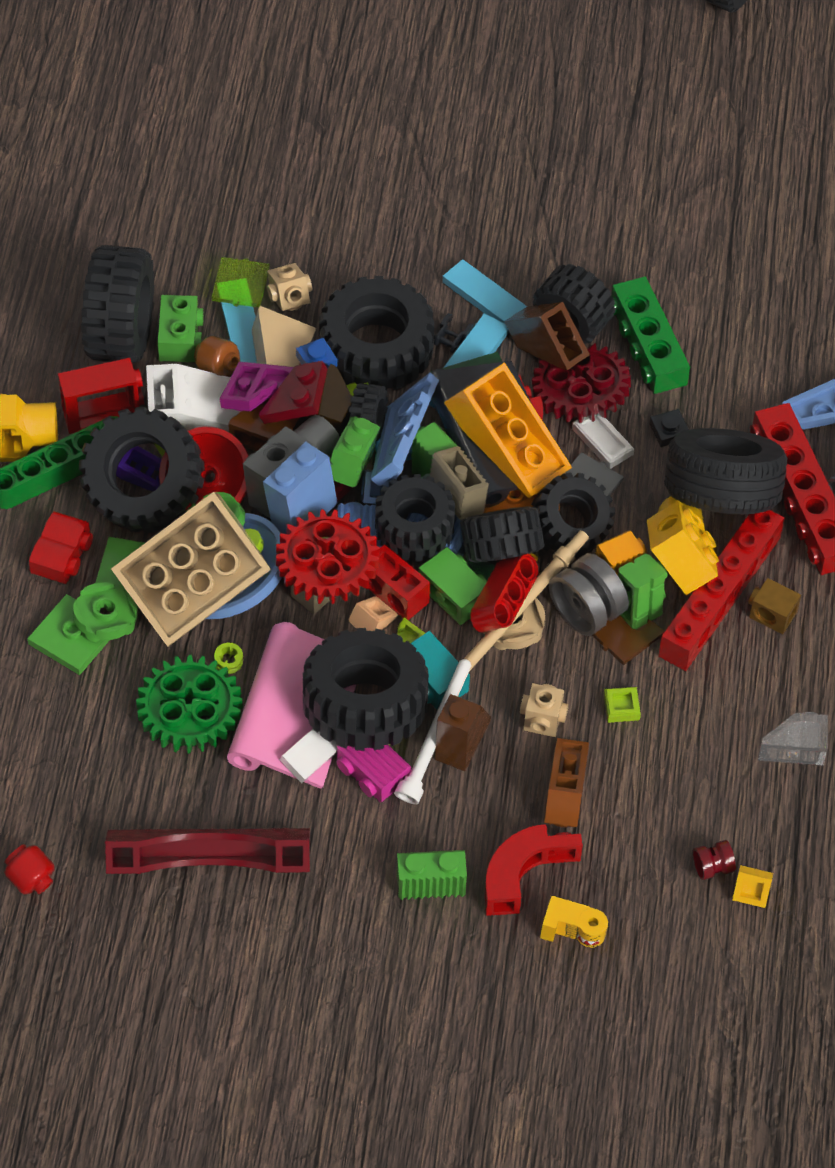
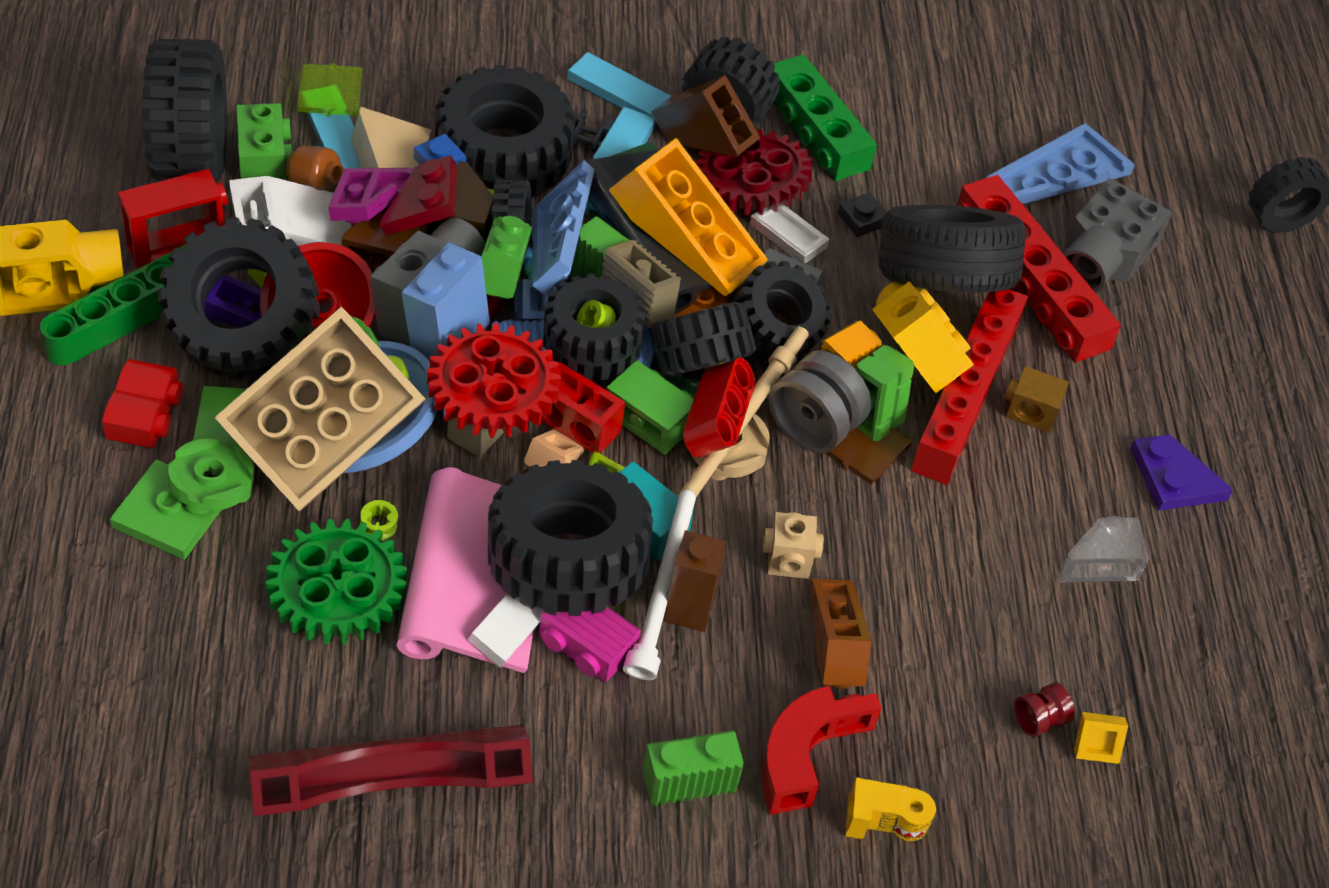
camera: 15 degrees left, 5 degrees down
(29, 869) = (144, 823): red head -> none
(289, 287) = (390, 89): tan brick -> none
(416, 510) = (596, 315): none -> lime bush
(622, 704) = (882, 531): lime tile -> none

